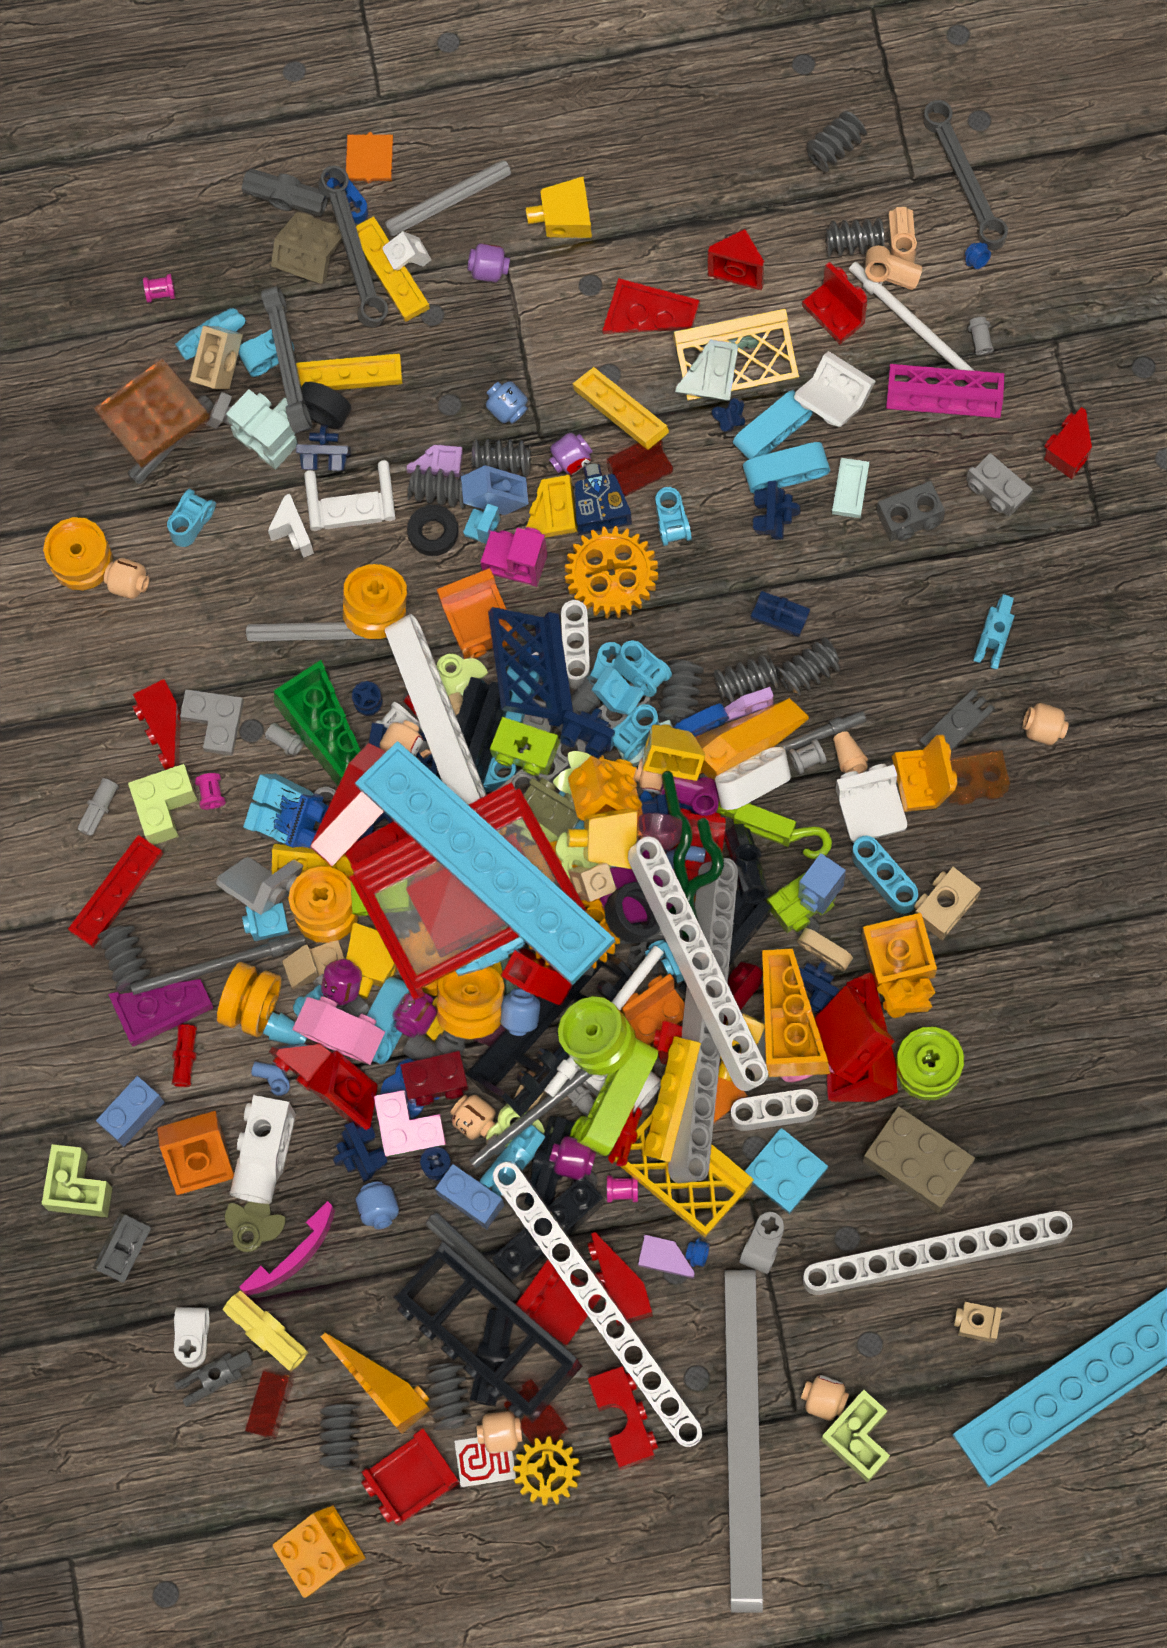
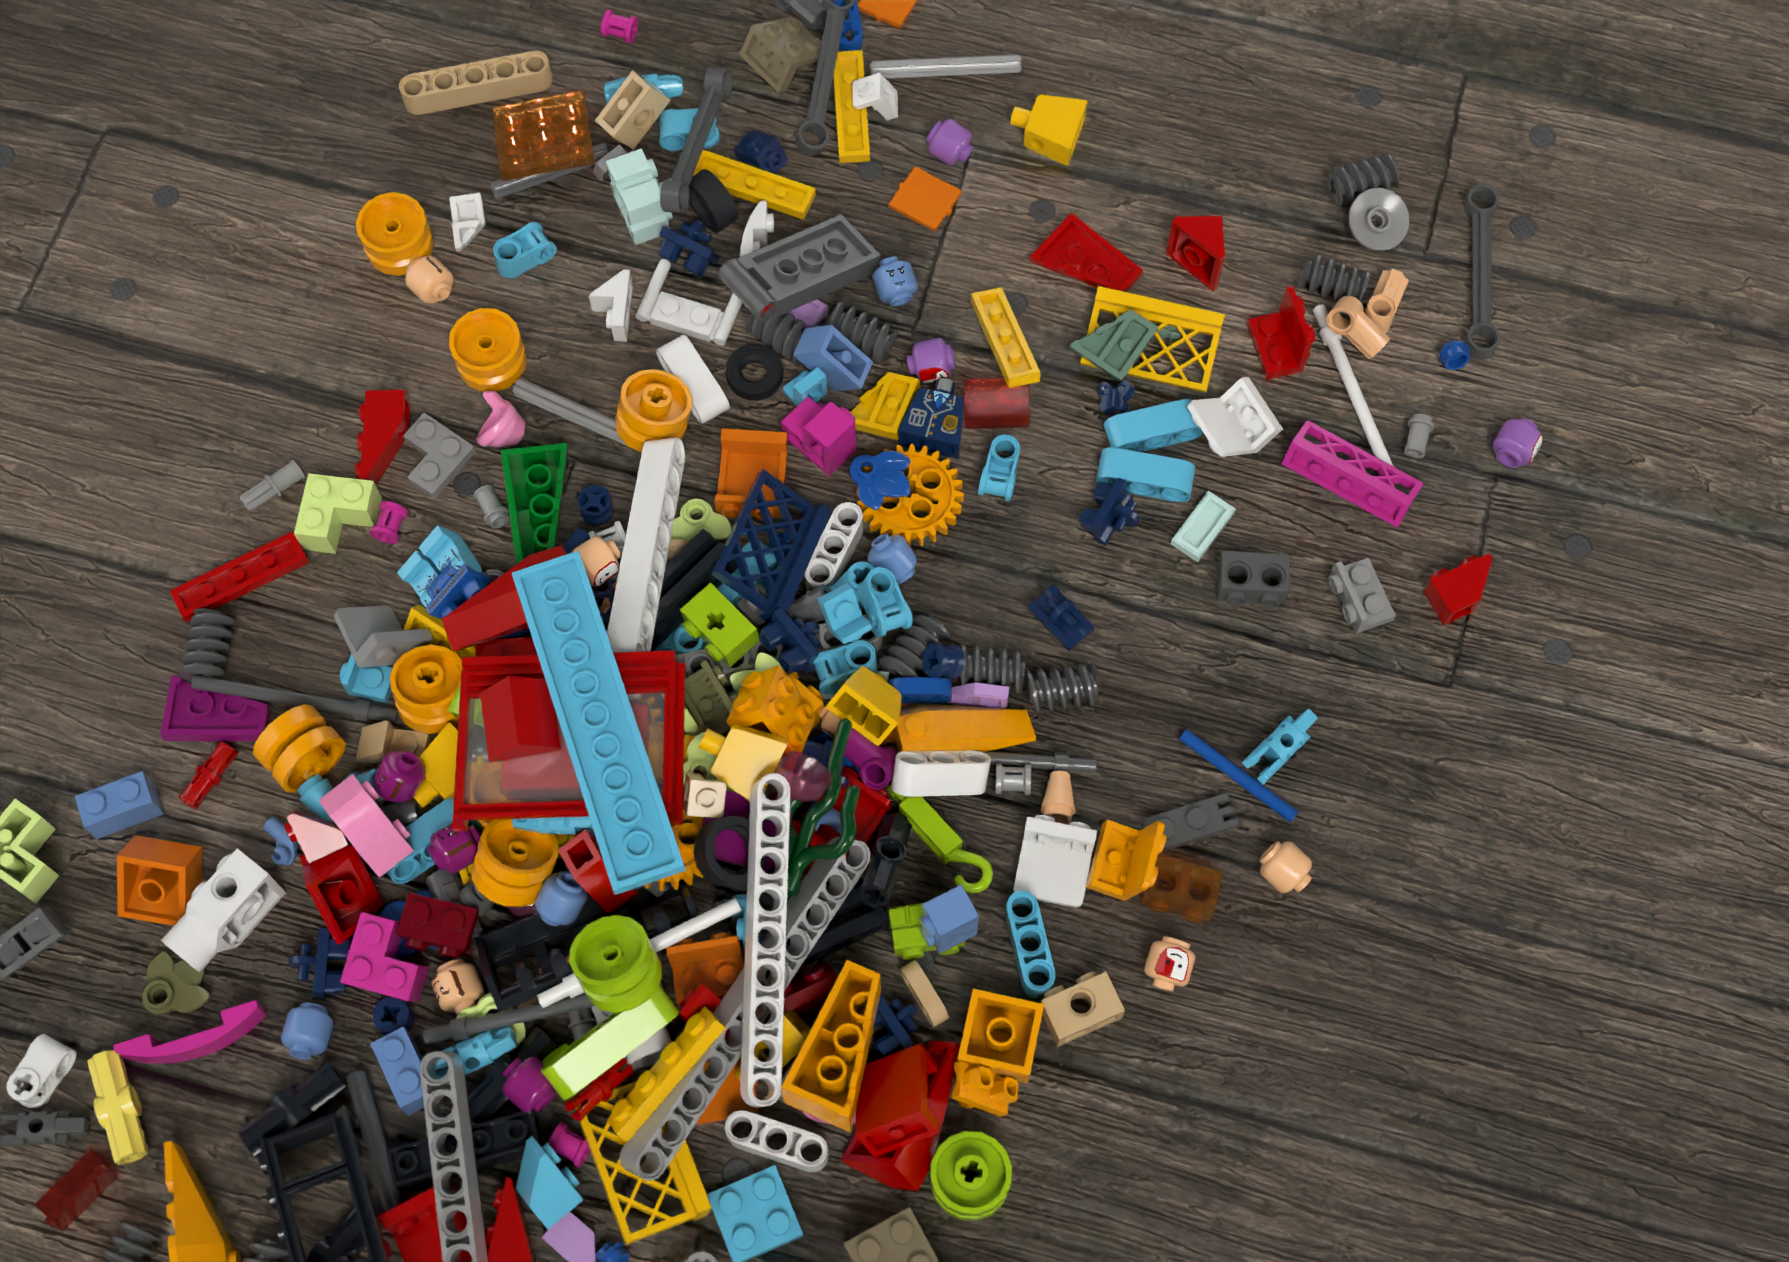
camera: 20 degrees right, 5 degrees down
(61, 405) = (496, 80): none -> tan beam
(125, 512) = (467, 218): none -> white slope
(211, 614) = (487, 349): none -> light orange wheel
(255, 668) = (504, 425): none -> bright pink hat
(337, 342) = (761, 151): none -> dark blue bracket
(372, 548) = (683, 361): none -> white beam
(373, 415) = (757, 229): none -> white slope
(400, 1266) = (294, 1107): none -> black piece
(423, 891) = (519, 719): none -> red slope
(429, 427) = (800, 268): none -> dark grey hinge
(491, 319) = (925, 199): none -> orange piece
(588, 569) = (884, 479): none -> blue plate
(622, 1224) = (543, 1185): none -> medium azure slope
(625, 626) = (894, 554): none -> medium blue head
(710, 691) = (943, 660): none -> dark blue wheel
(872, 161) = (1391, 217): none -> light grey dish
(974, 671) = (1238, 775): none -> blue bar
(995, 838) = (1169, 963): none -> head
(1060, 305) = (1517, 443): none -> medium lavender head

